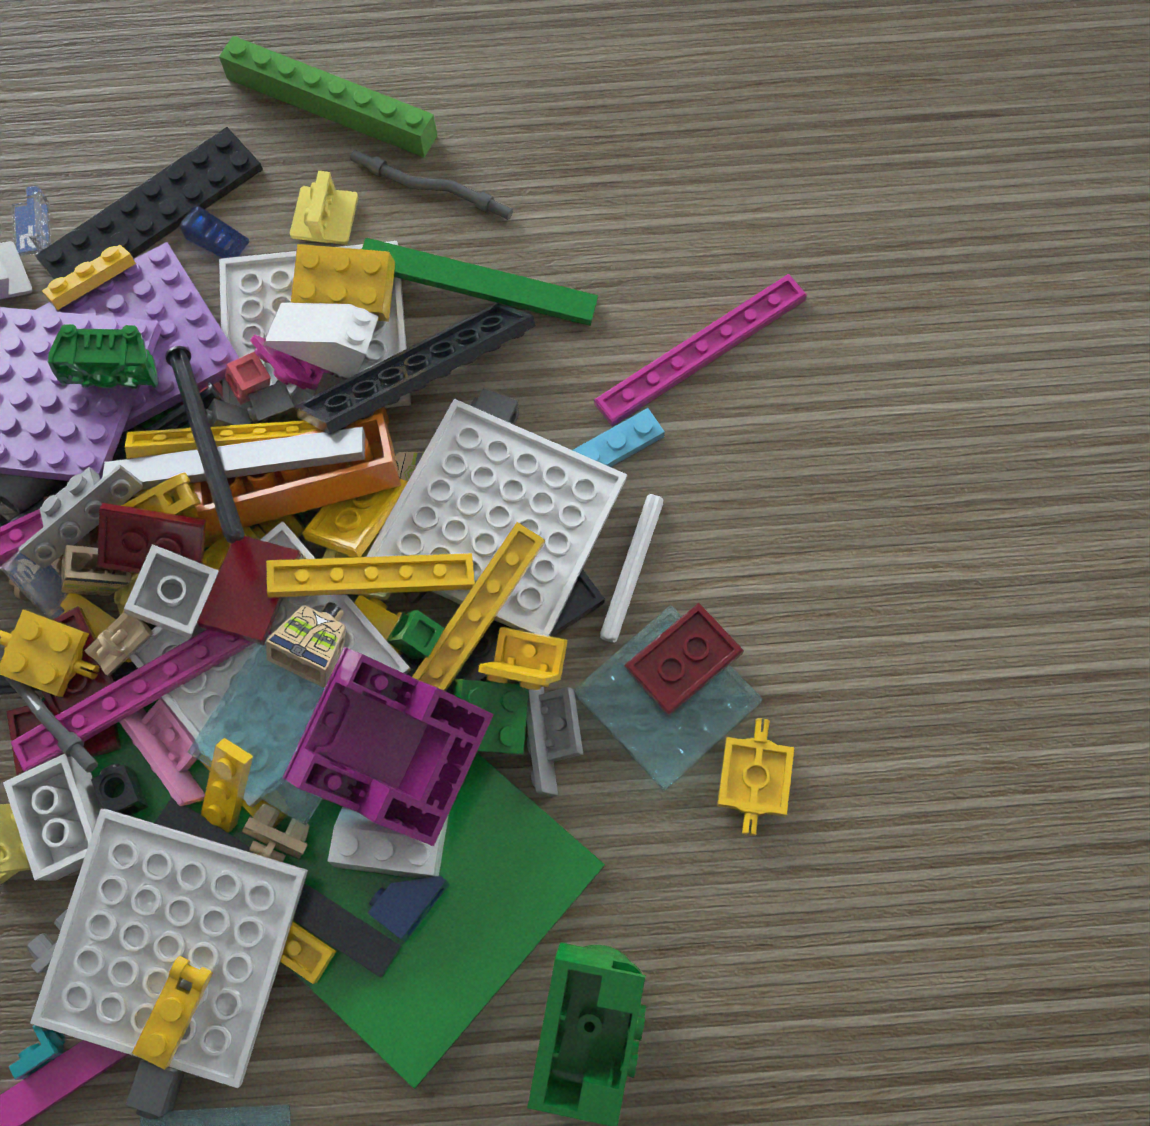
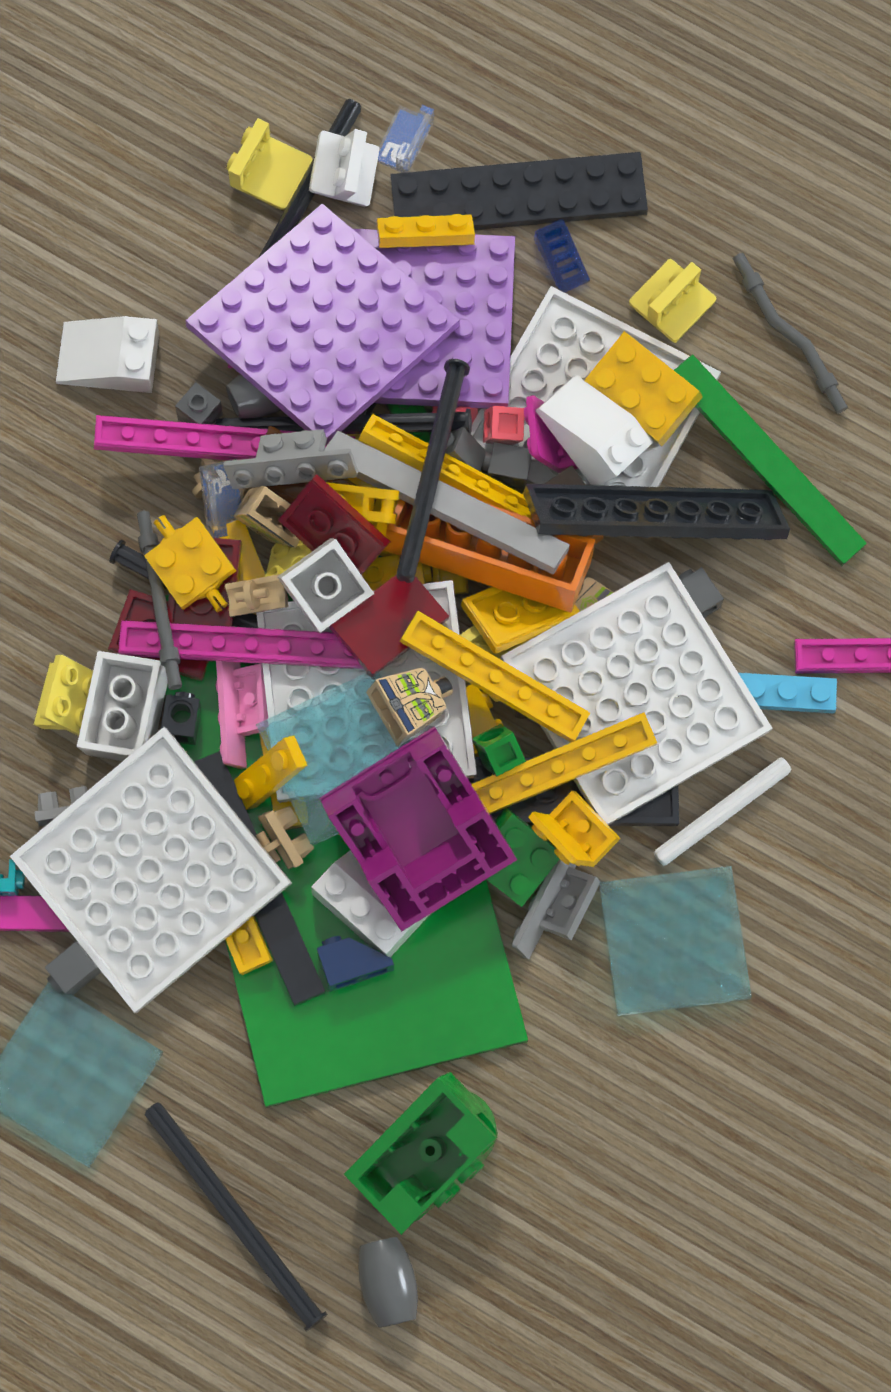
camera: 30 degrees right, 5 degrees up
(102, 357) = (392, 337): green piece -> none
(172, 1013) = (121, 922): yellow plate -> none
(329, 96) = (753, 182): bright green brick -> none
(683, 659) = (708, 919): dark red tile -> none
(755, 777) = (700, 1054): yellow plate -> none

